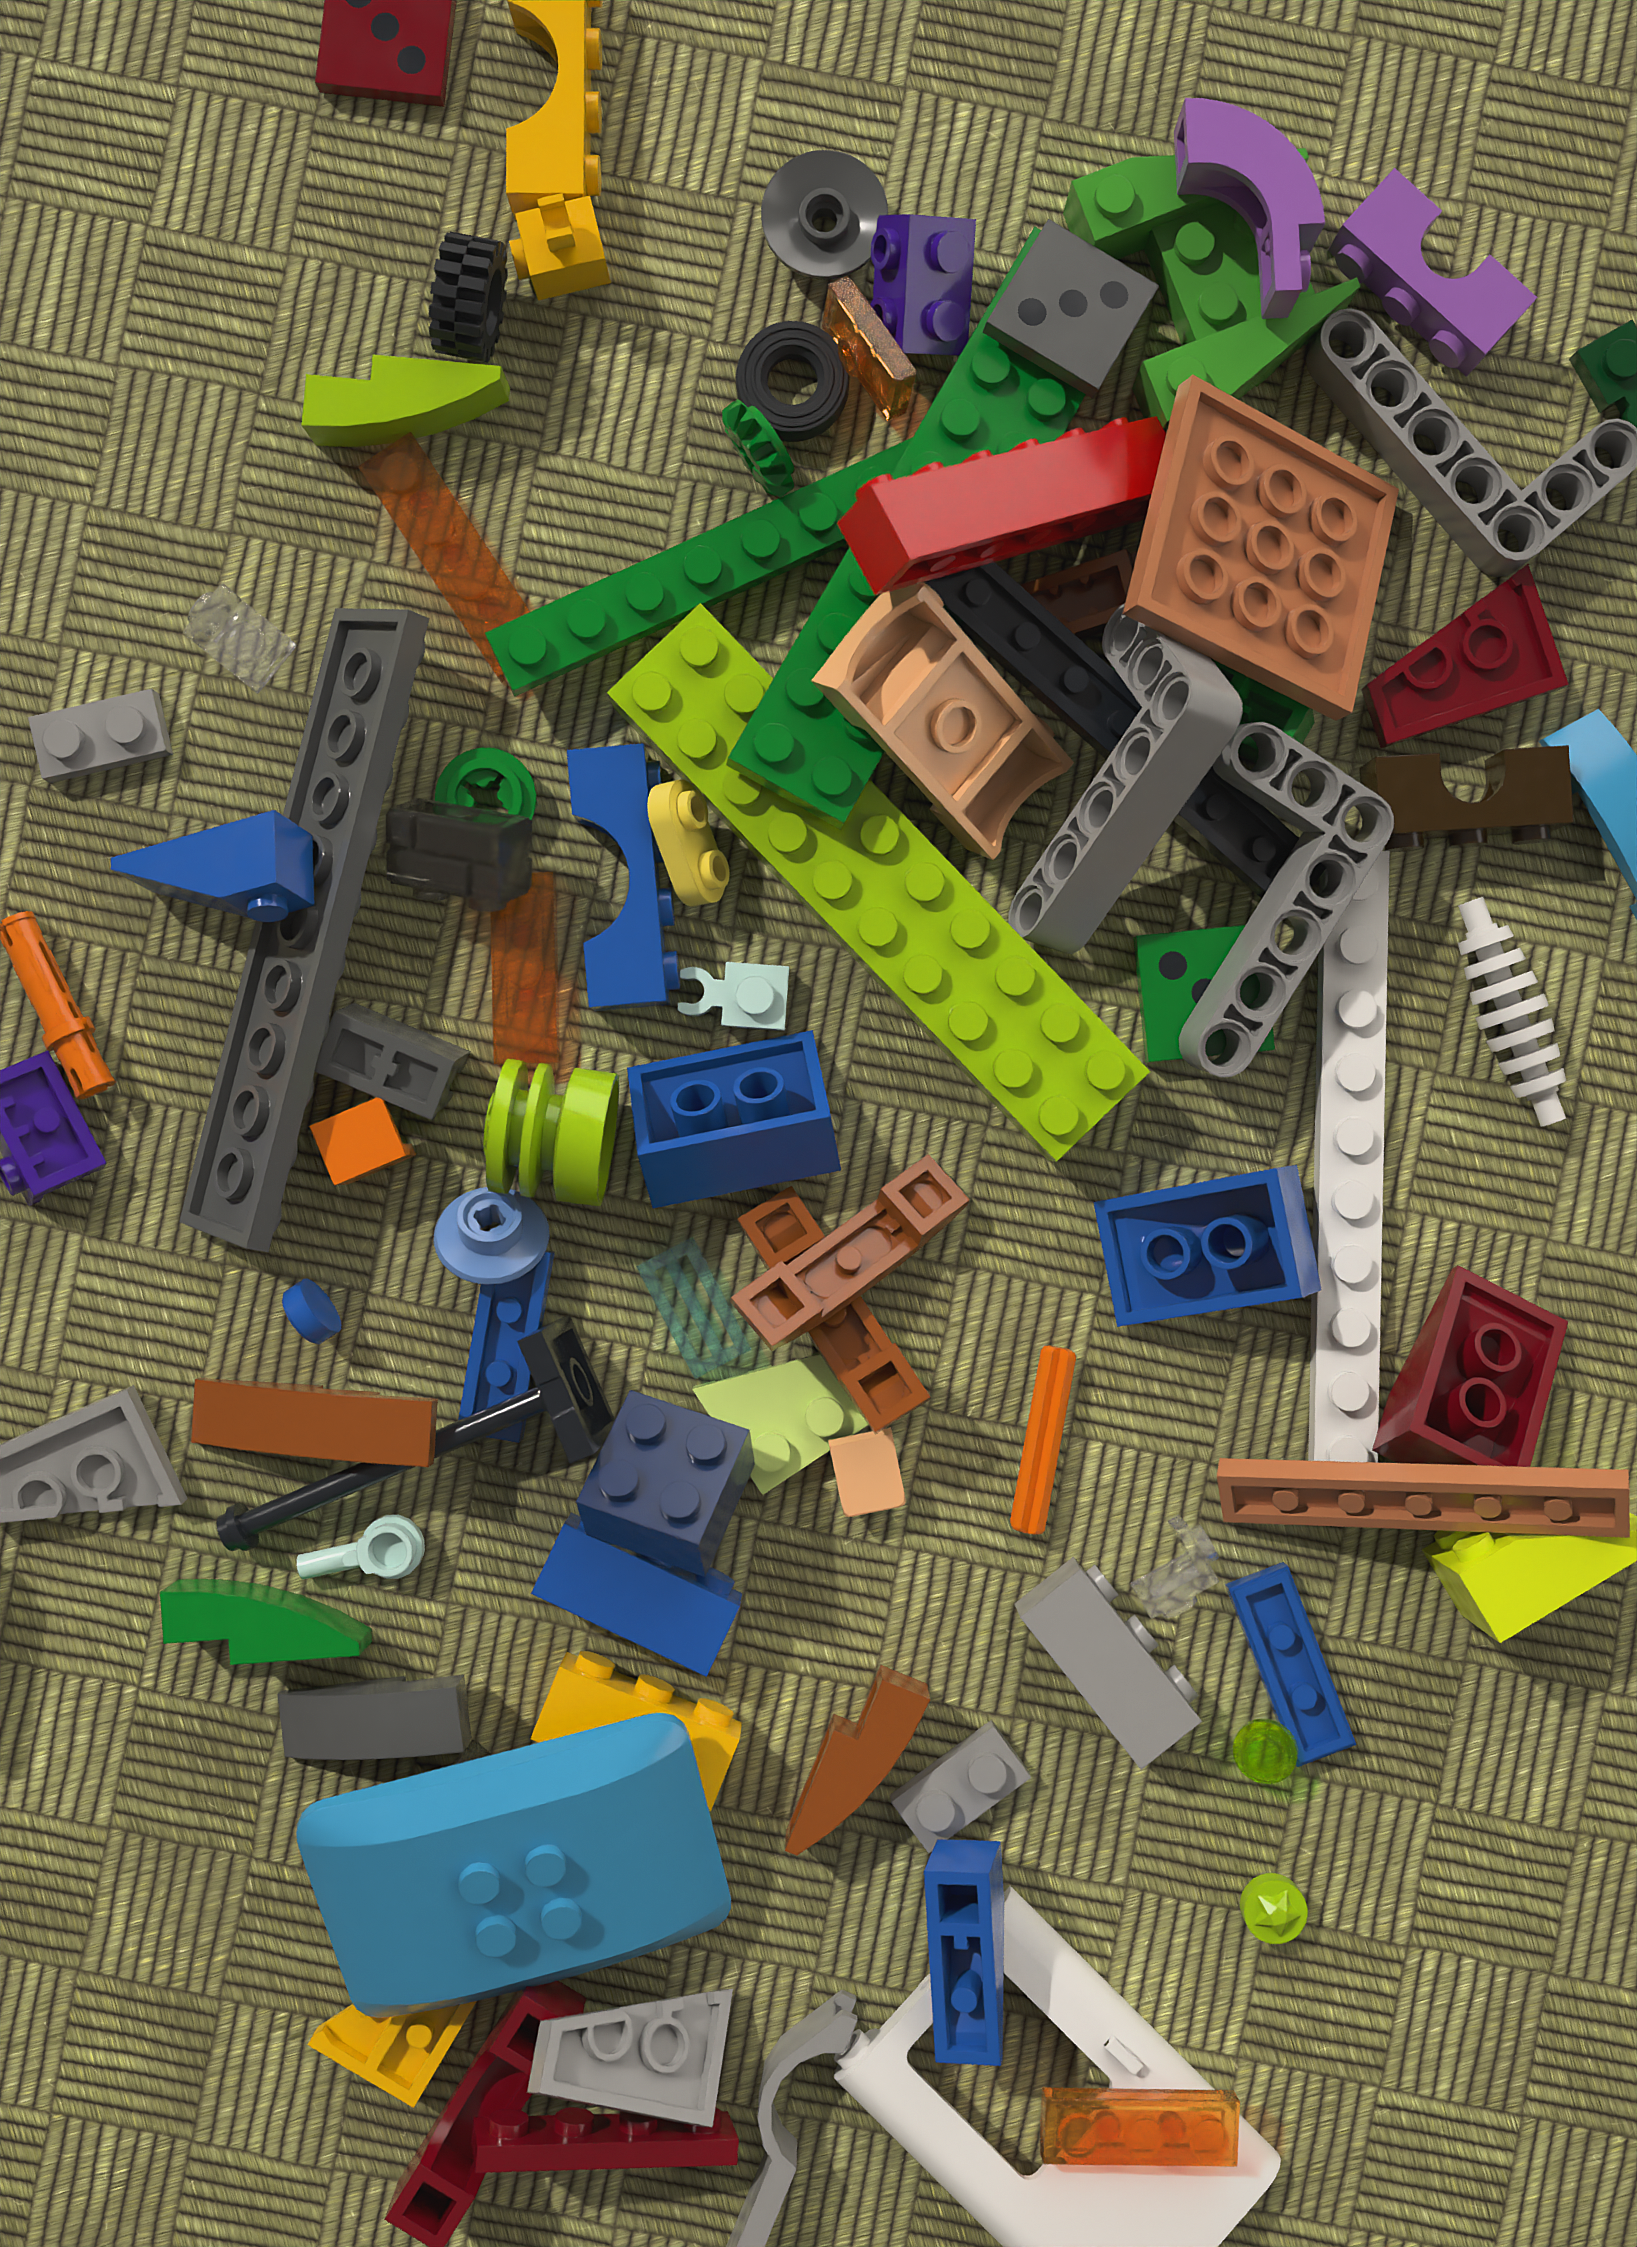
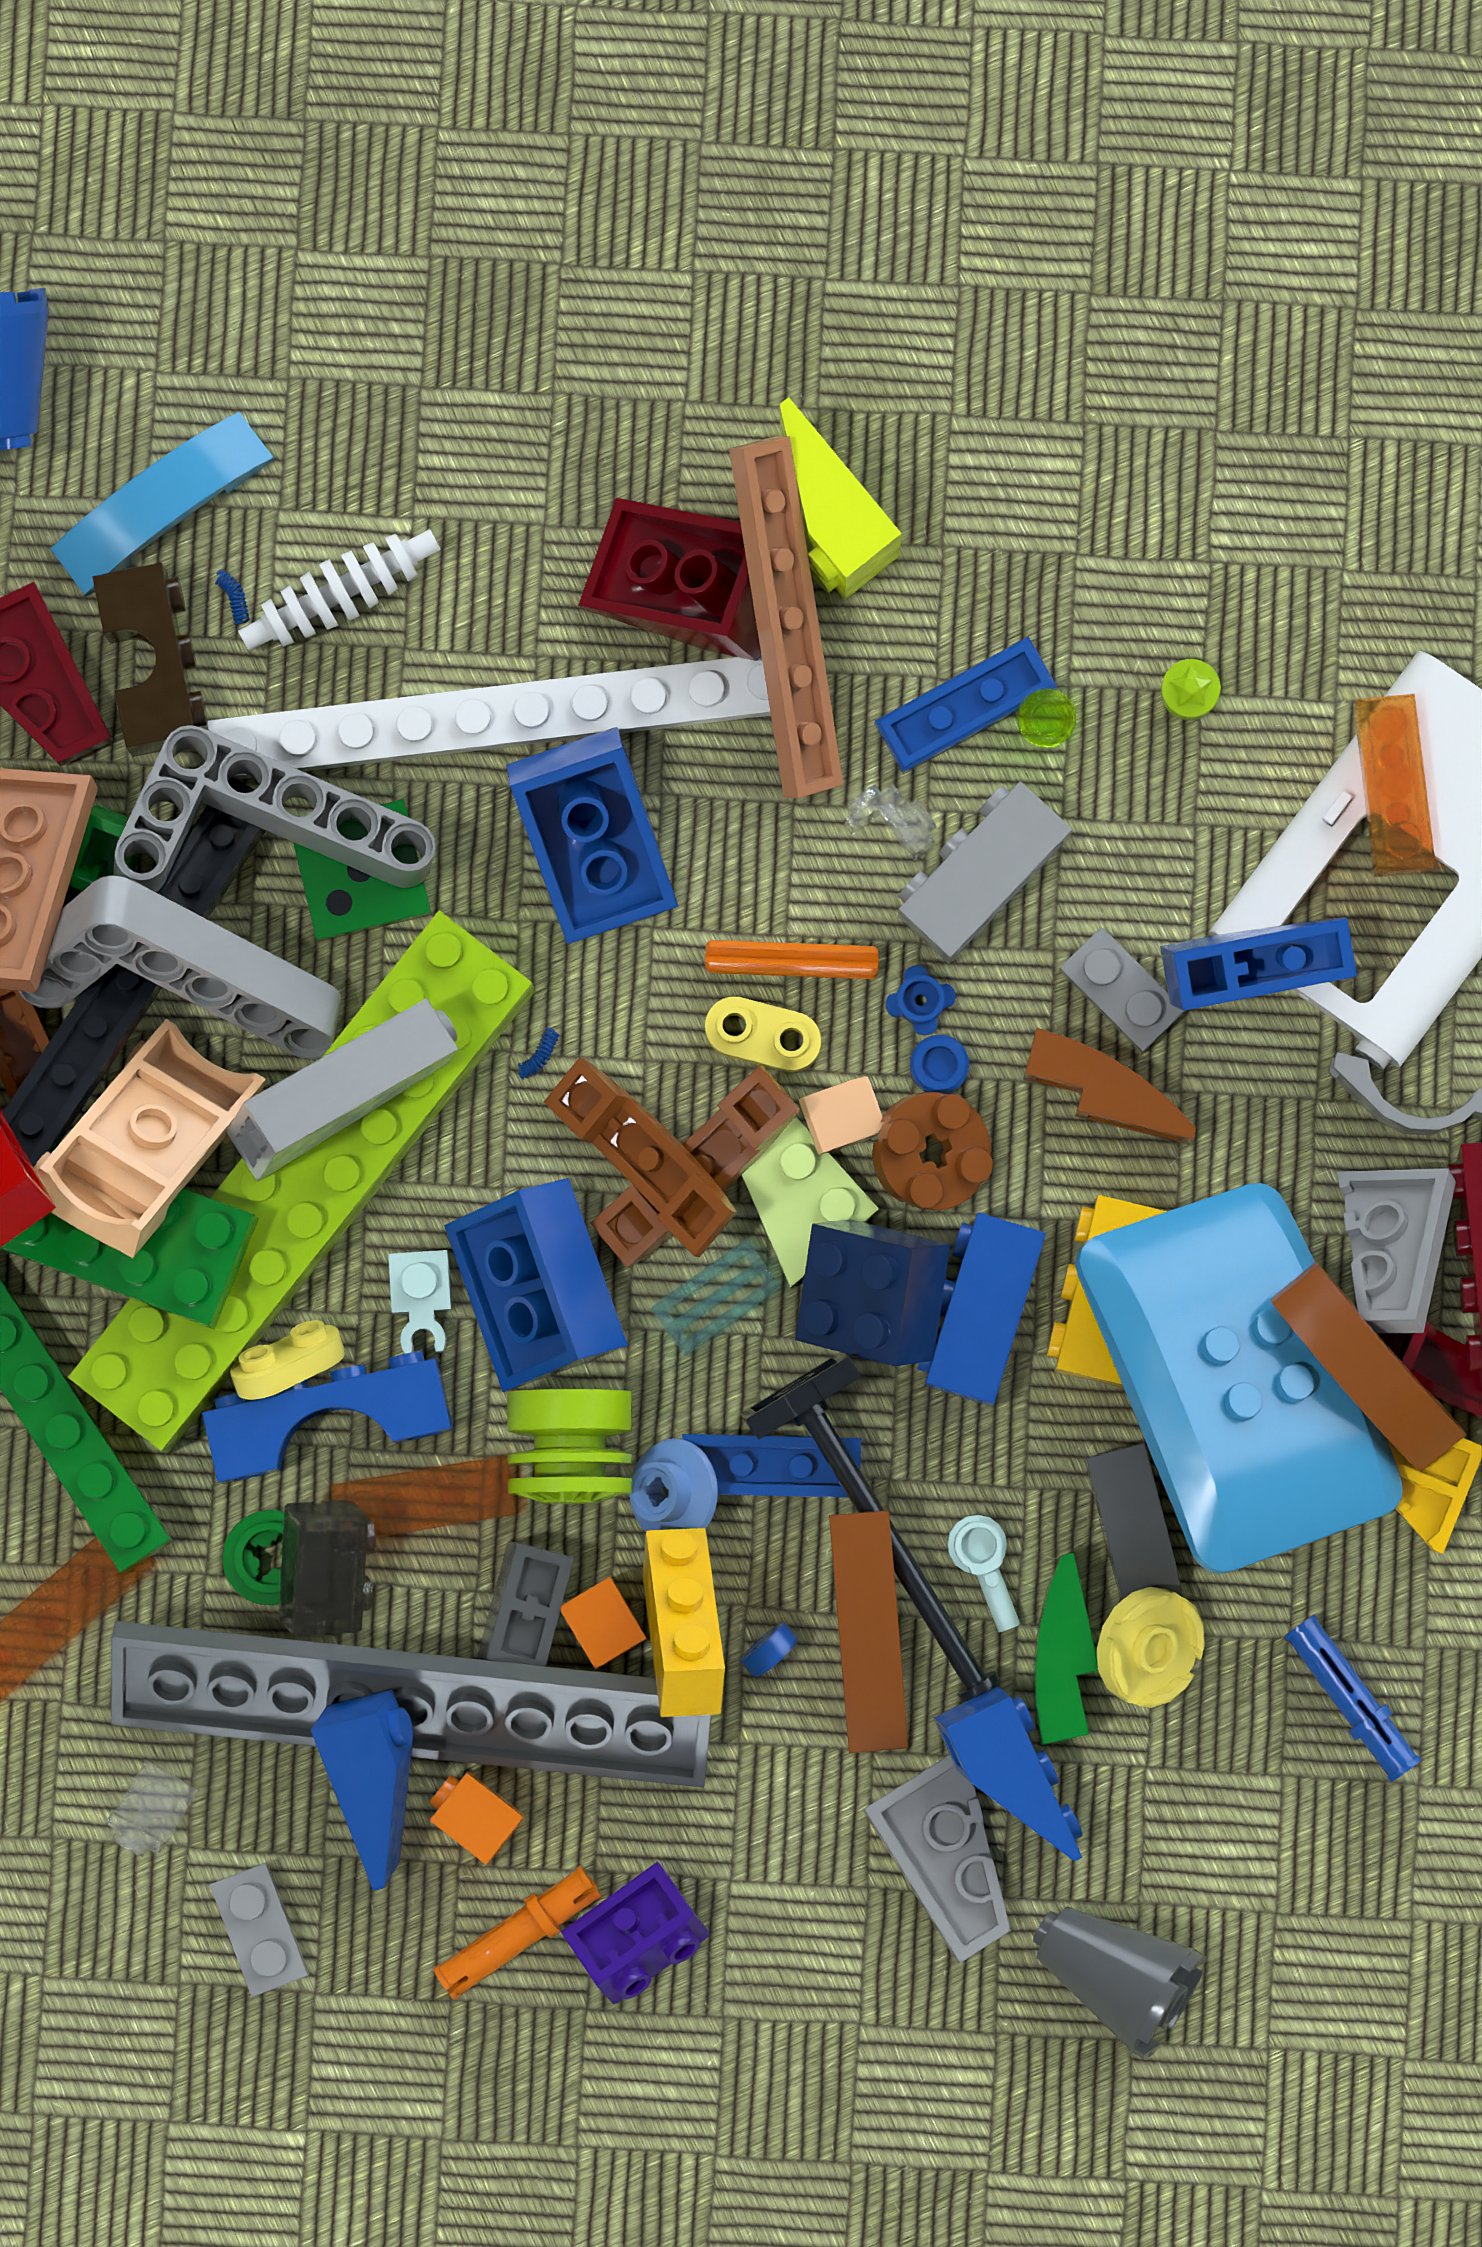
camera: 95 degrees left, 5 degrees down
(149, 1932) = (1353, 1699): none -> blue pin
(157, 1541) = (995, 1754): none -> blue slope
(179, 977) = (475, 1816): none -> orange brick
(252, 1719) = (1150, 1647): none -> light yellow tile
(336, 1229) = (683, 1622): none -> yellow brick
(509, 2012) = (1367, 1367): none -> dark orange slope
(810, 1595) = (901, 1139): none -> dark orange plate
(907, 1580) = (939, 1064): none -> blue tile
(967, 1398) = (762, 1034): none -> light yellow plate
(969, 939) = (341, 1088): none -> light grey slope
(976, 1155) = (530, 1065): none -> blue leg
(982, 1588) = (919, 983): none -> blue plate
(1516, 899) = (237, 614): none -> blue leg

